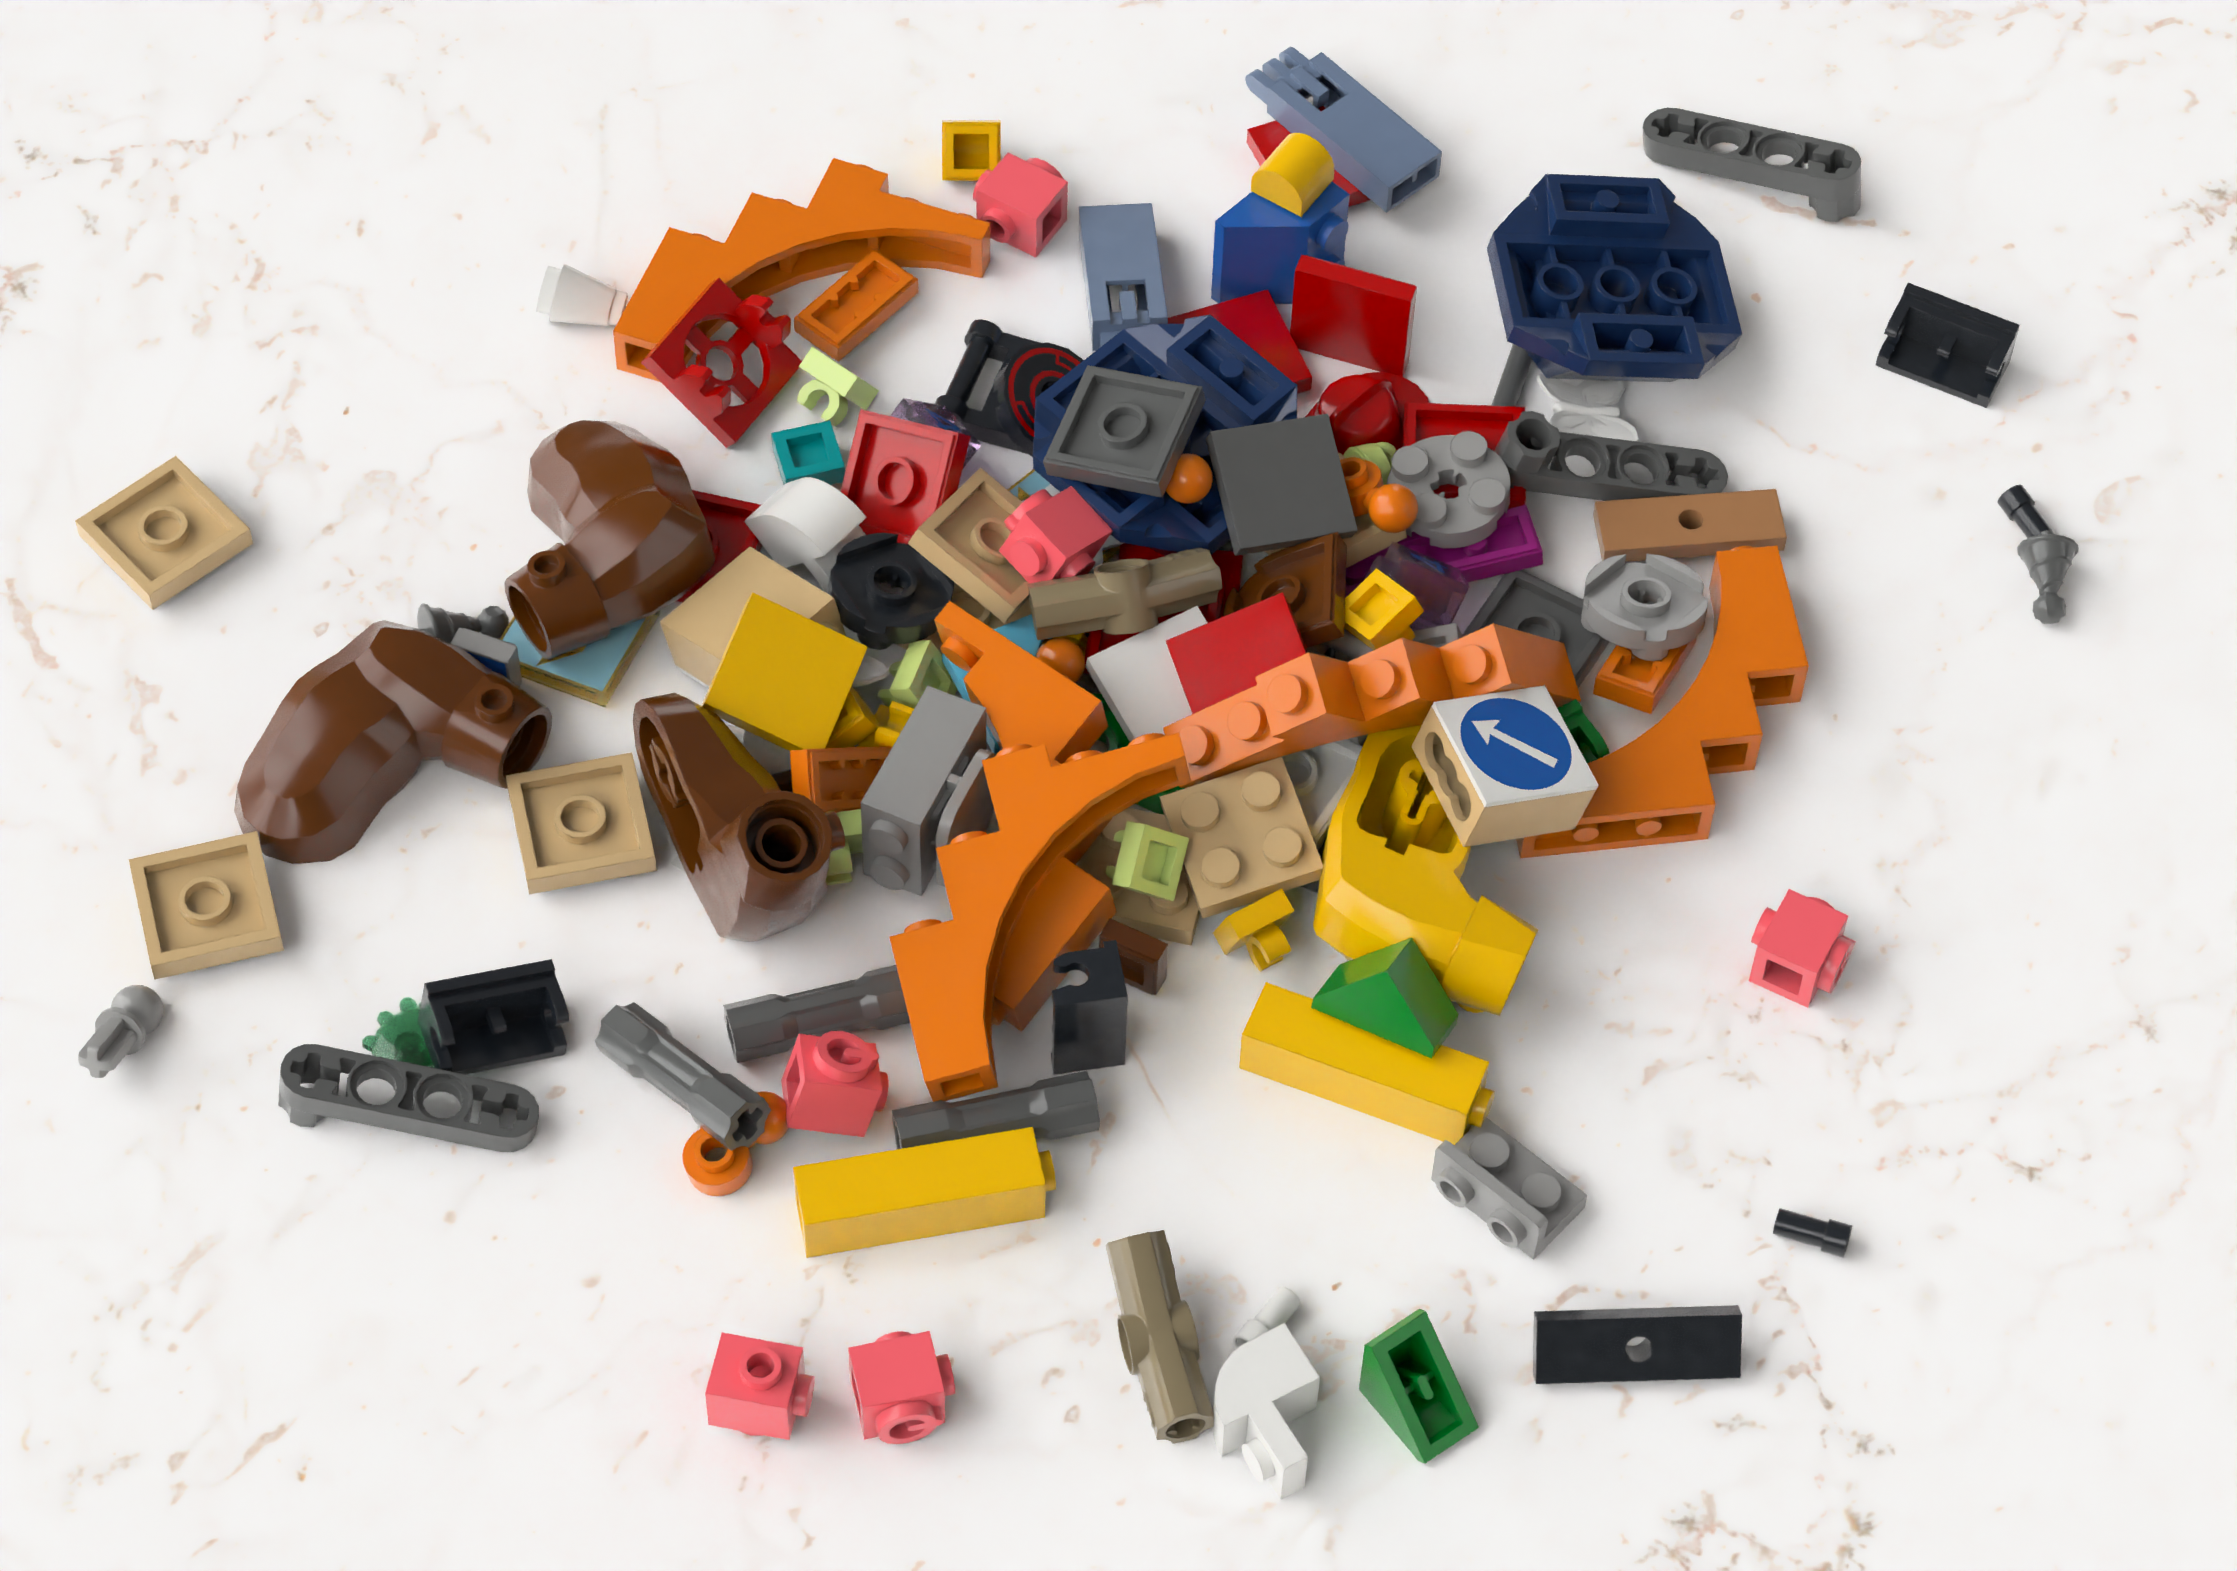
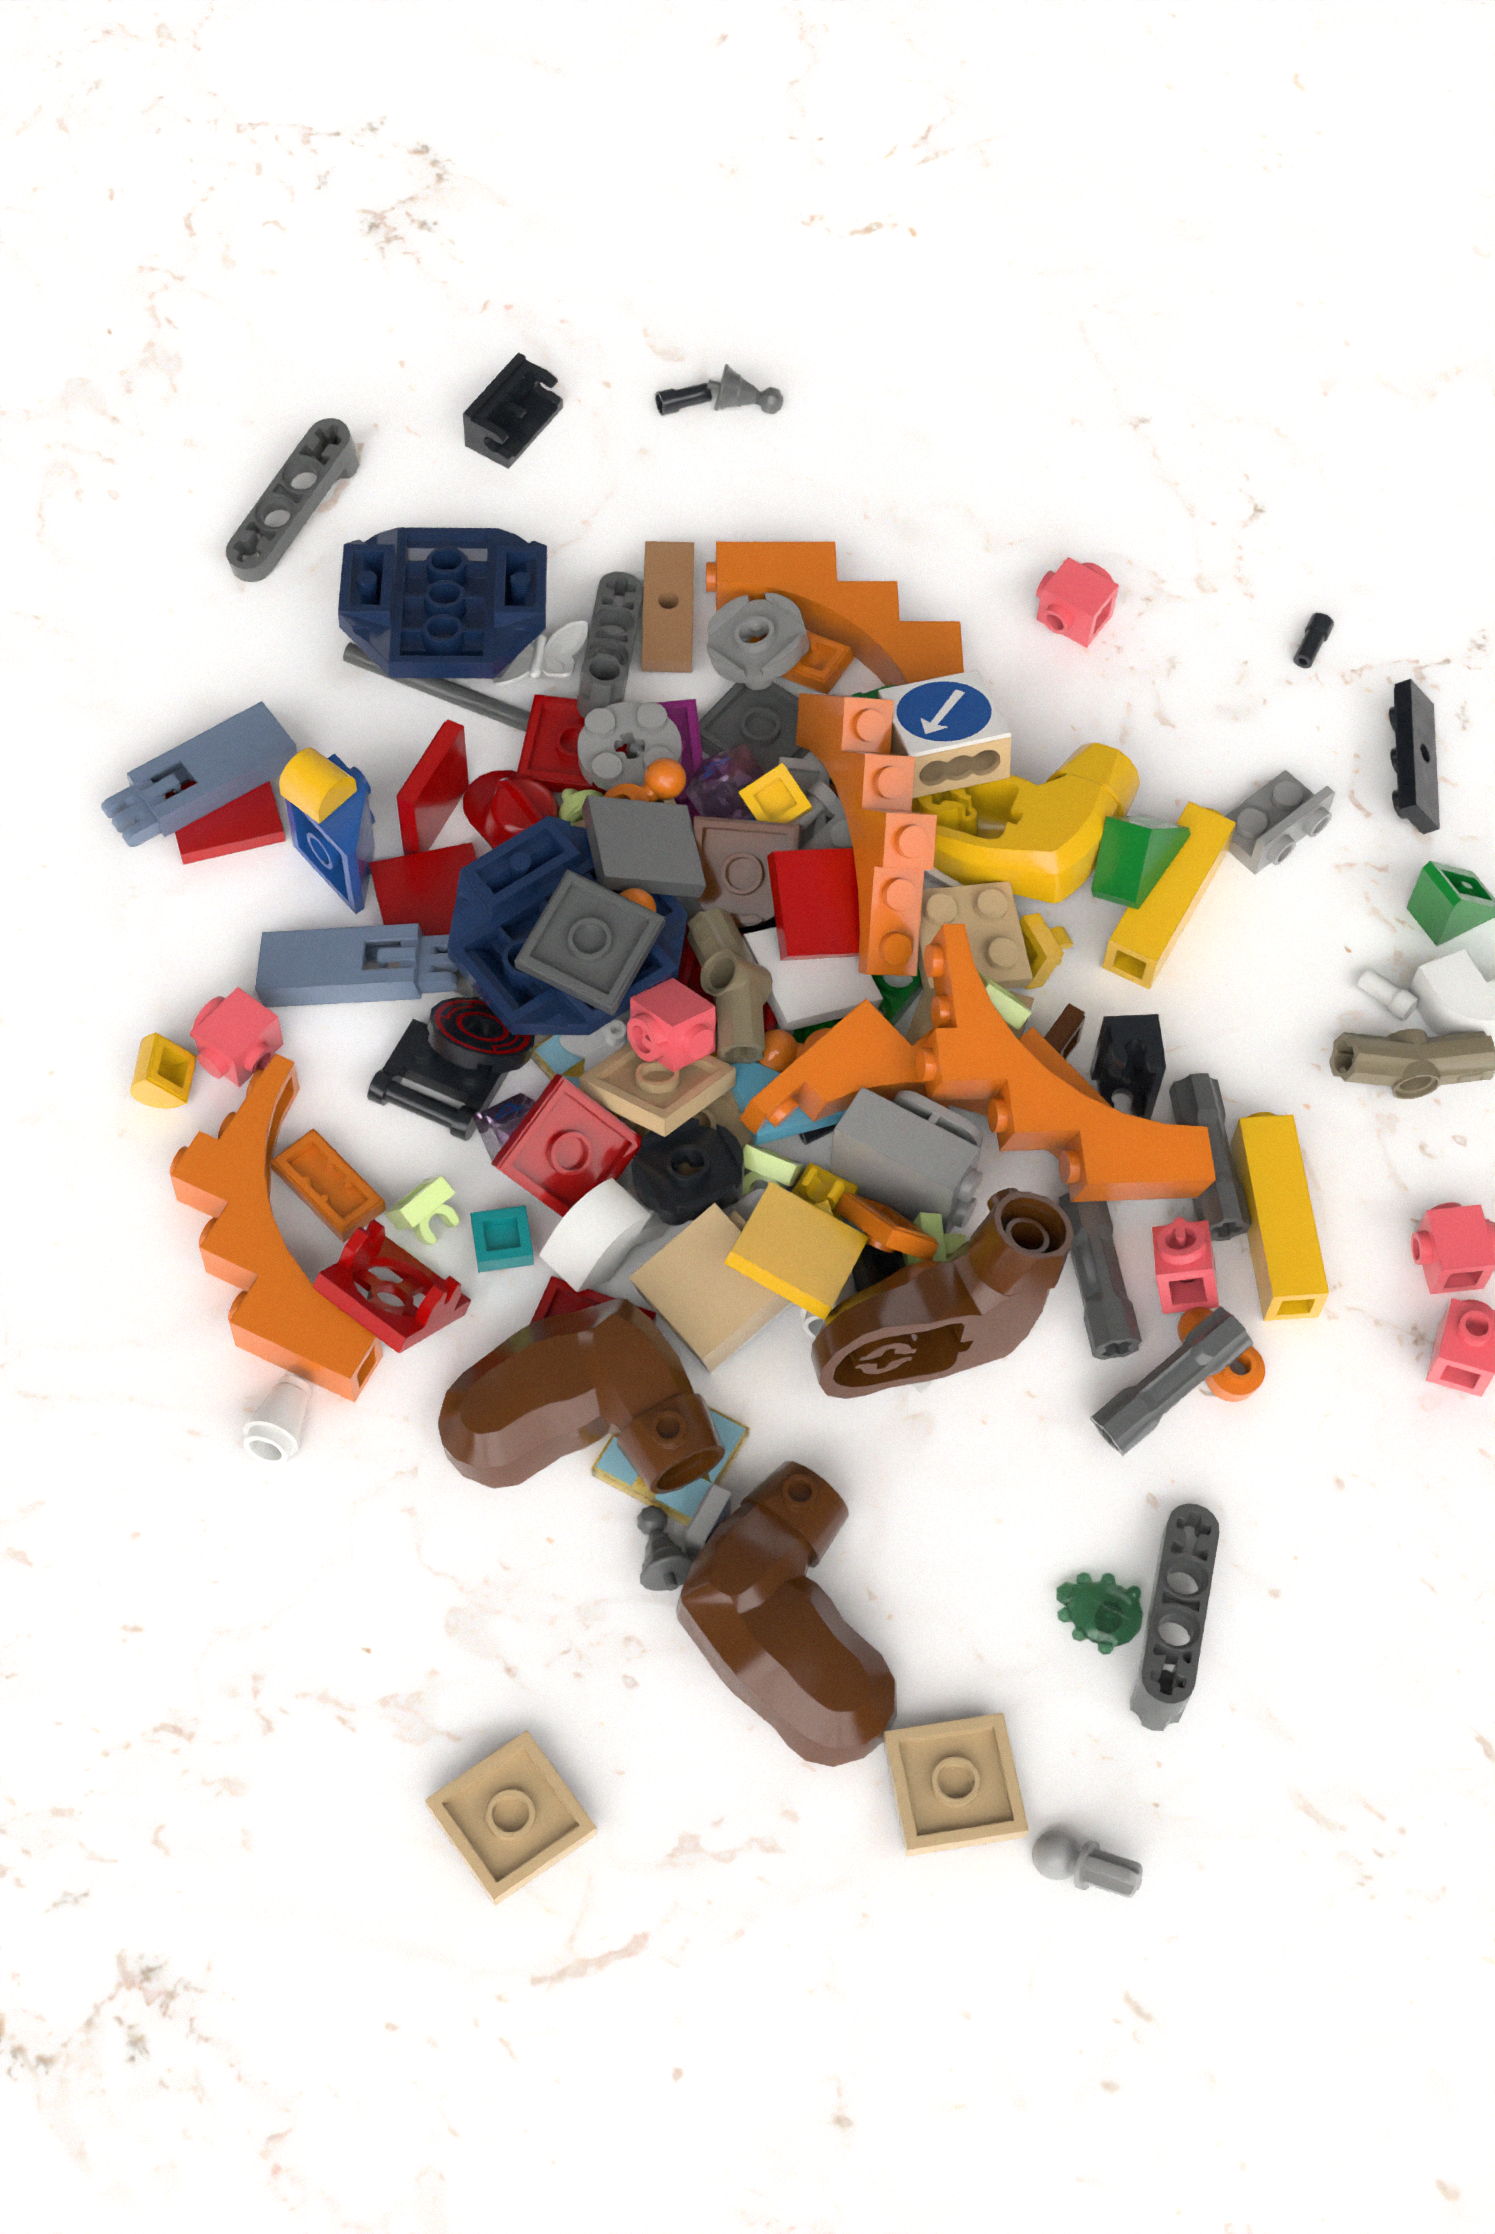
camera: 85 degrees left, 5 degrees up
(494, 1018) = (1100, 1534): black hinge -> none
(581, 823) = (890, 1454): tan plate -> none

